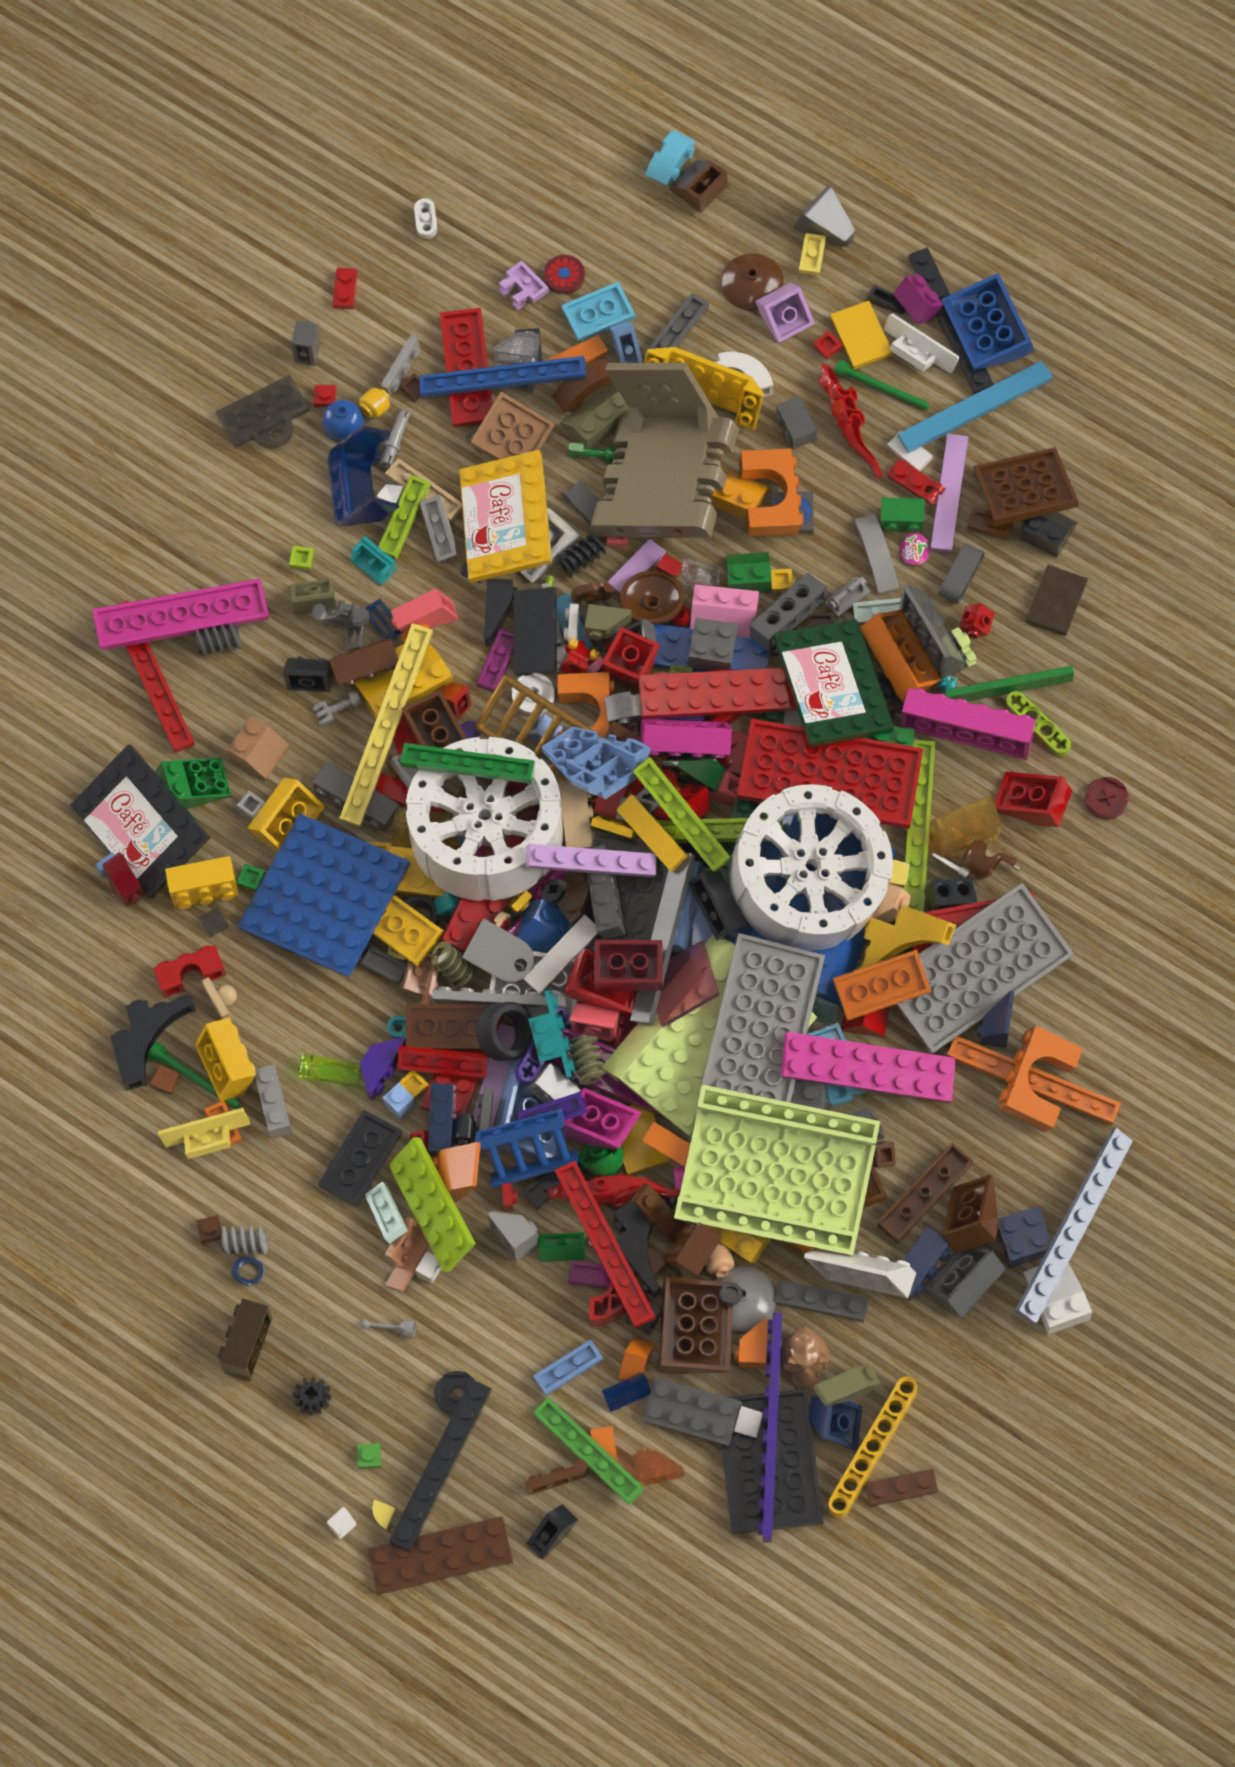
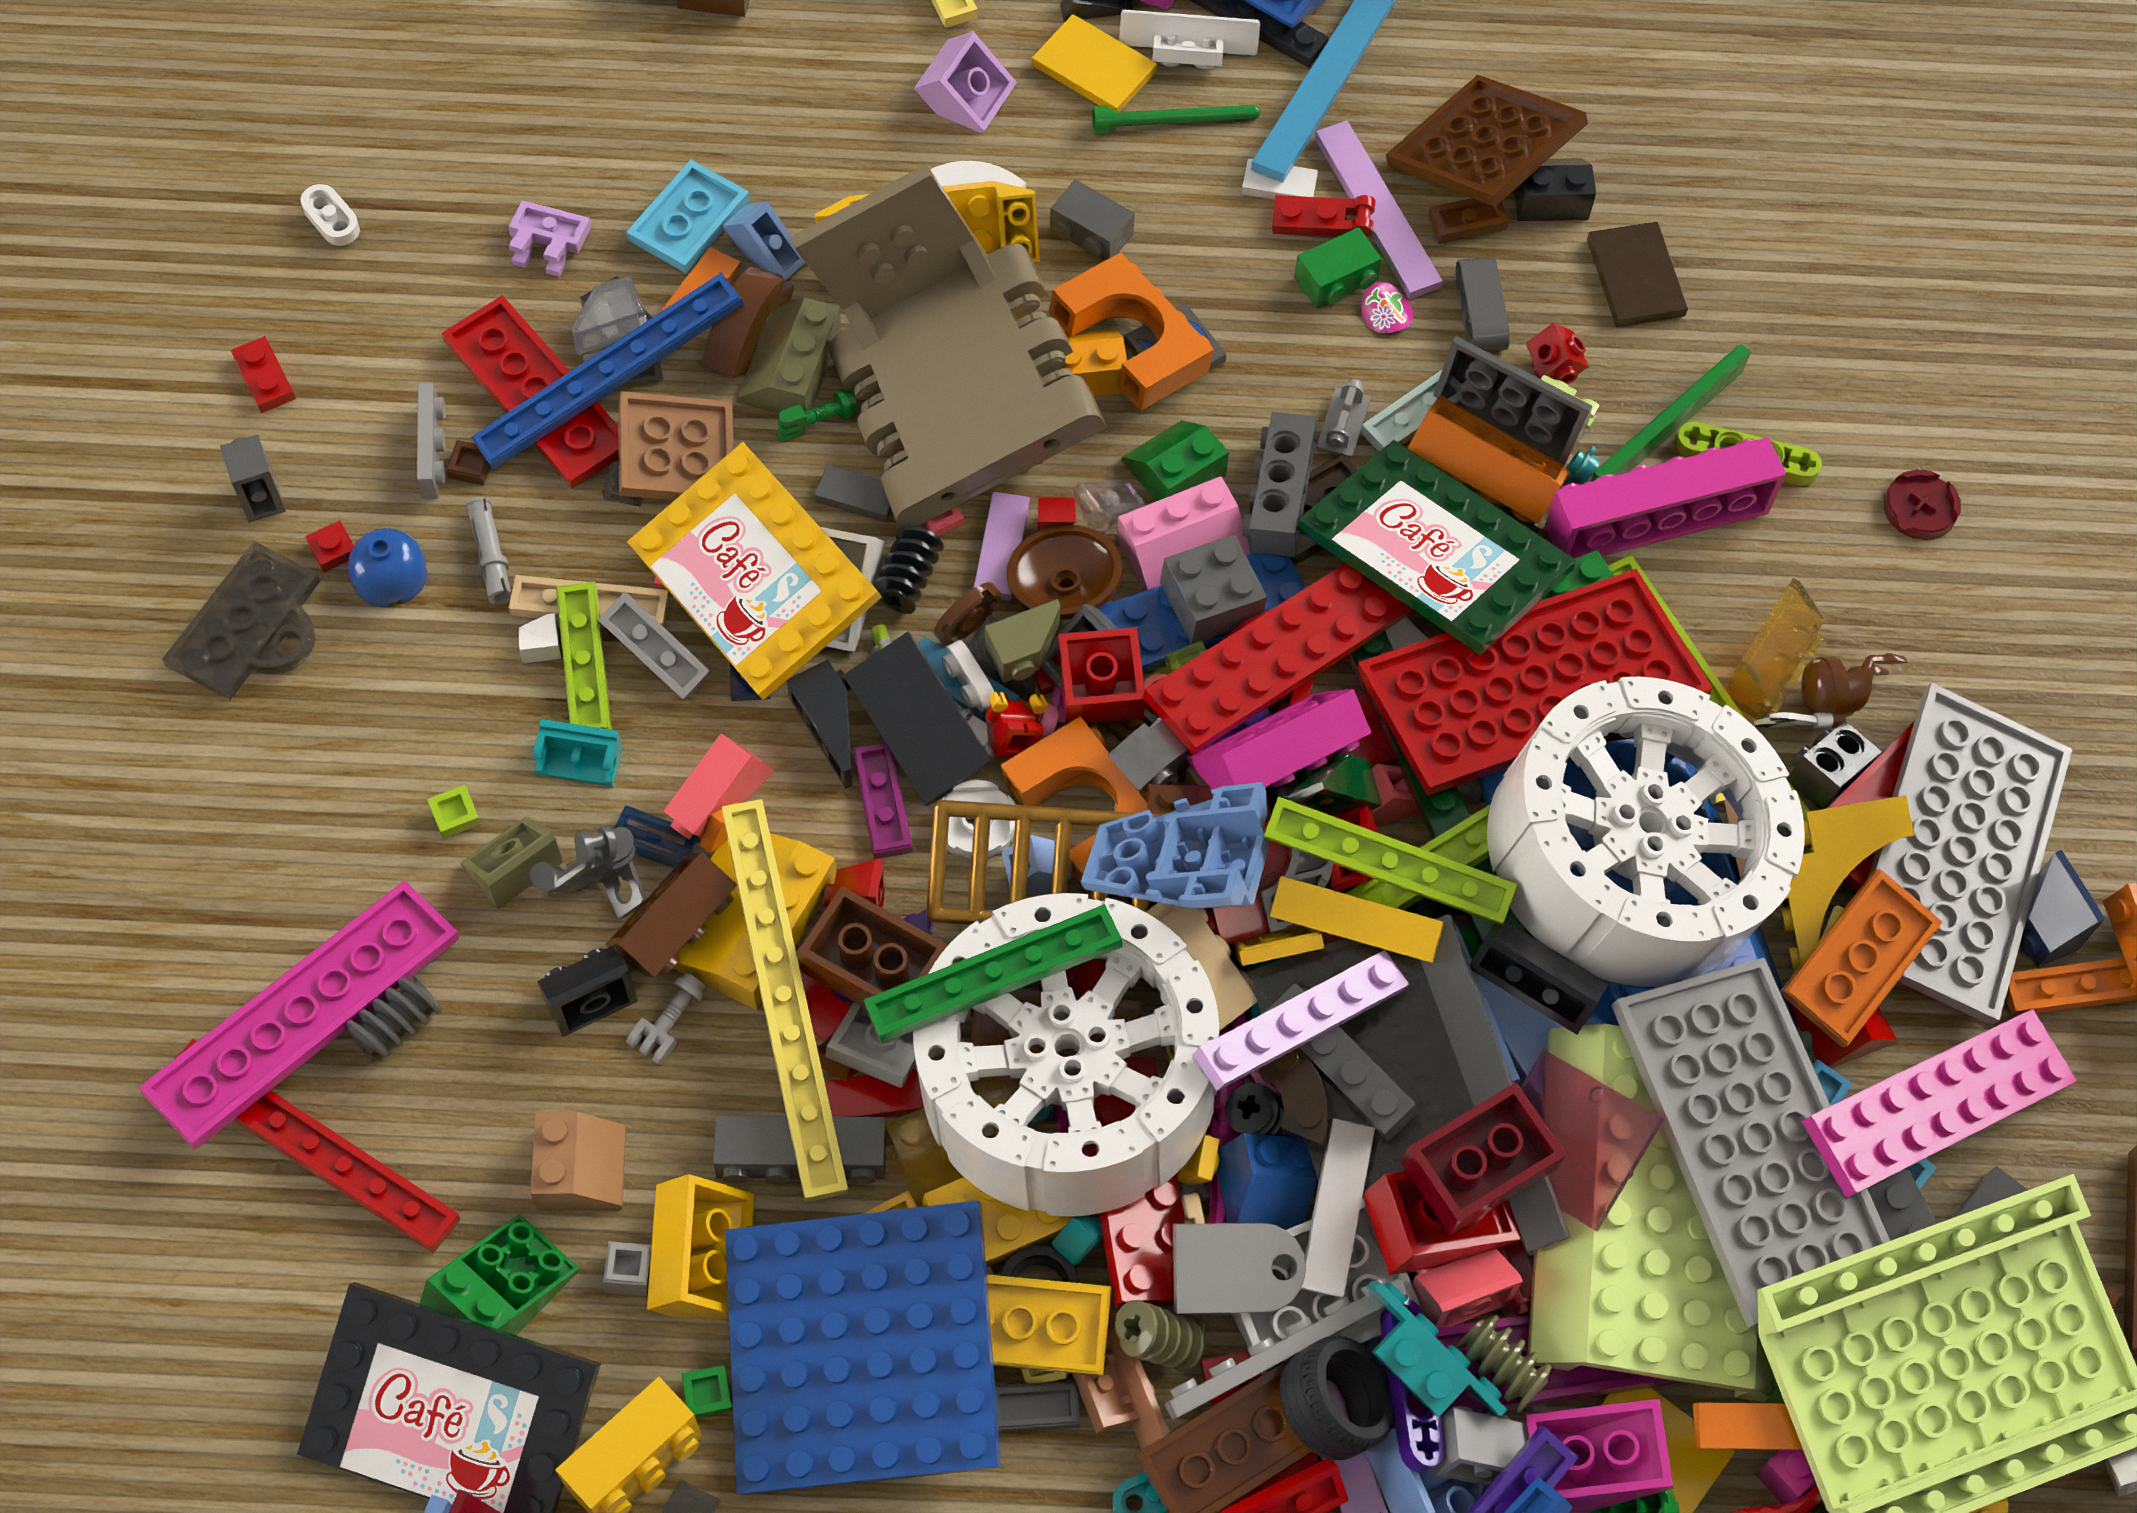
camera: 40 degrees left, 5 degrees down
(352, 478) = (456, 647): clear blue windscreen -> none
(374, 403) = (422, 513): yellow head -> none
(564, 274) = (599, 190): tile -> none
(681, 323) = (824, 169): dark grey plate -> none
(683, 617) = (1130, 579): red plate -> none
(744, 289) = (881, 69): reddish brown dish -> none
(781, 580) = (1240, 447): yellow plate -> none
(827, 345) = (1058, 99): red plate -> none
(847, 416) = (1160, 176): red animal -> none
(877, 554) = (1342, 336): light grey slope -> none
(1033, 797) = (1830, 556): red slope -> none

